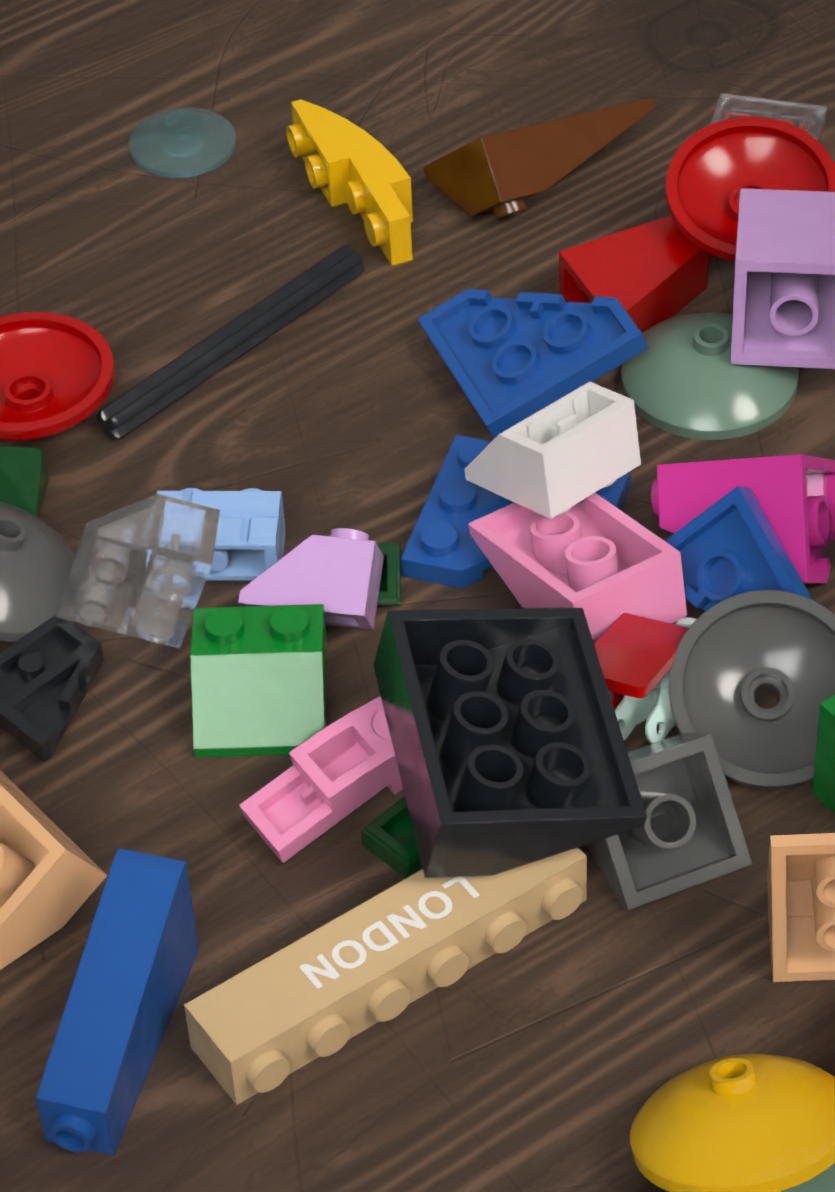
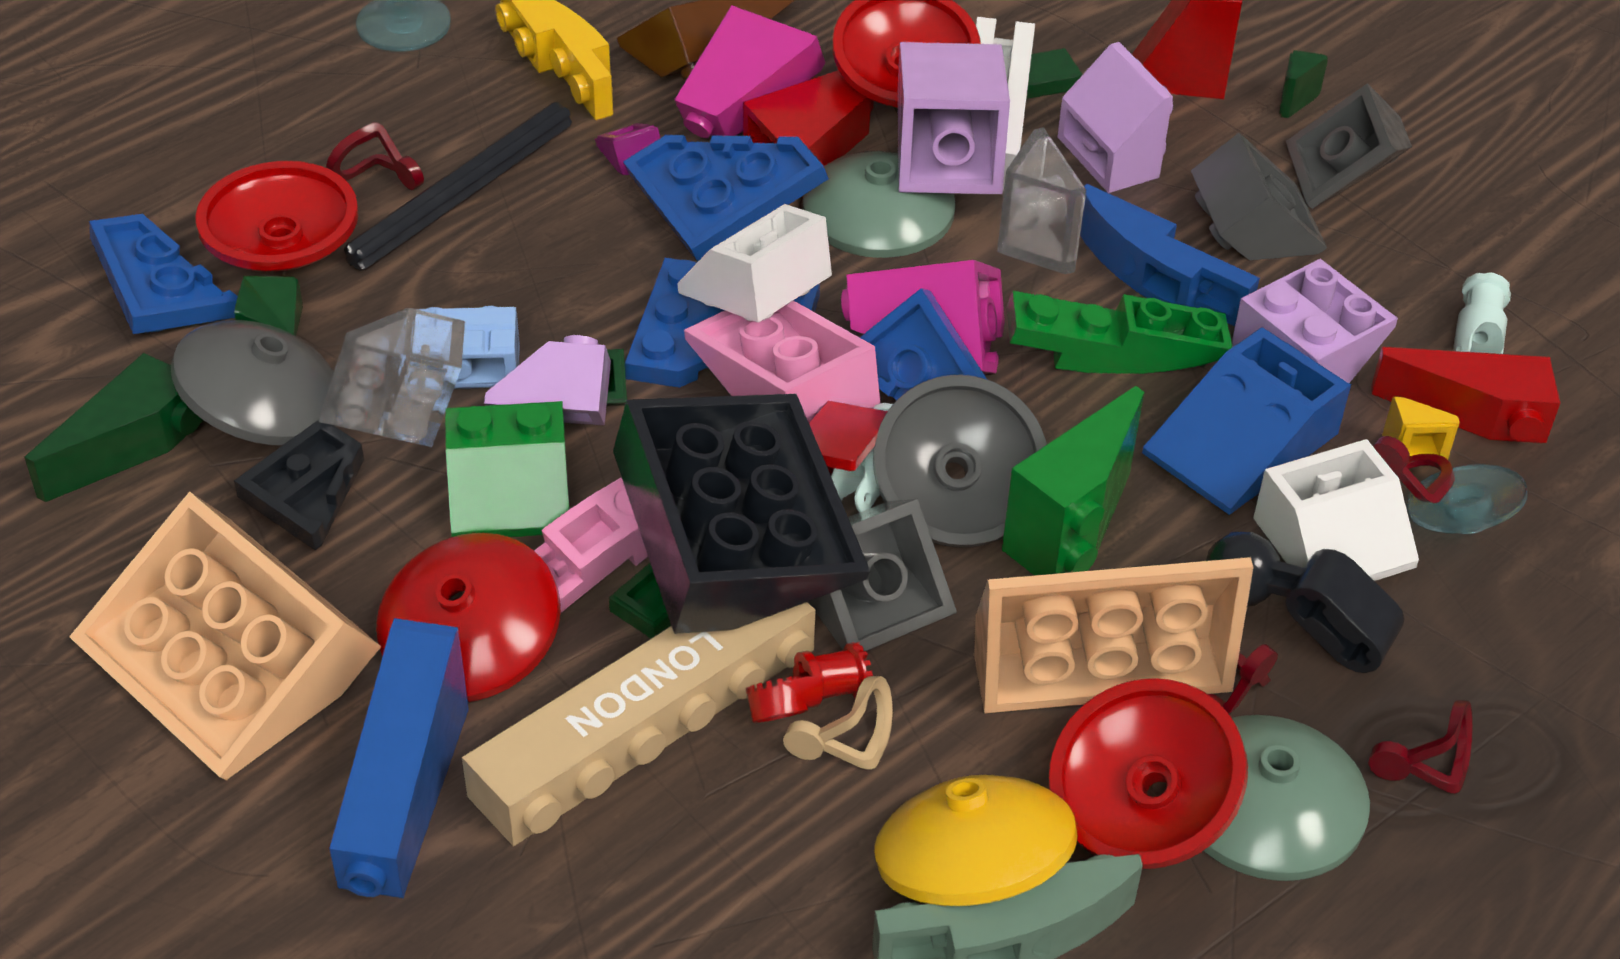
camera: 10 degrees left, 0 degrees up
(171, 319) = (405, 167): none -> dark red piece
(238, 851) = (501, 618): none -> red dish
(424, 294) = (626, 142): none -> magenta slope
(560, 205) = (742, 63): none -> dark pink slope
(570, 1004) = (809, 740): none -> tan piece
(580, 936) = (812, 681): none -> red connector

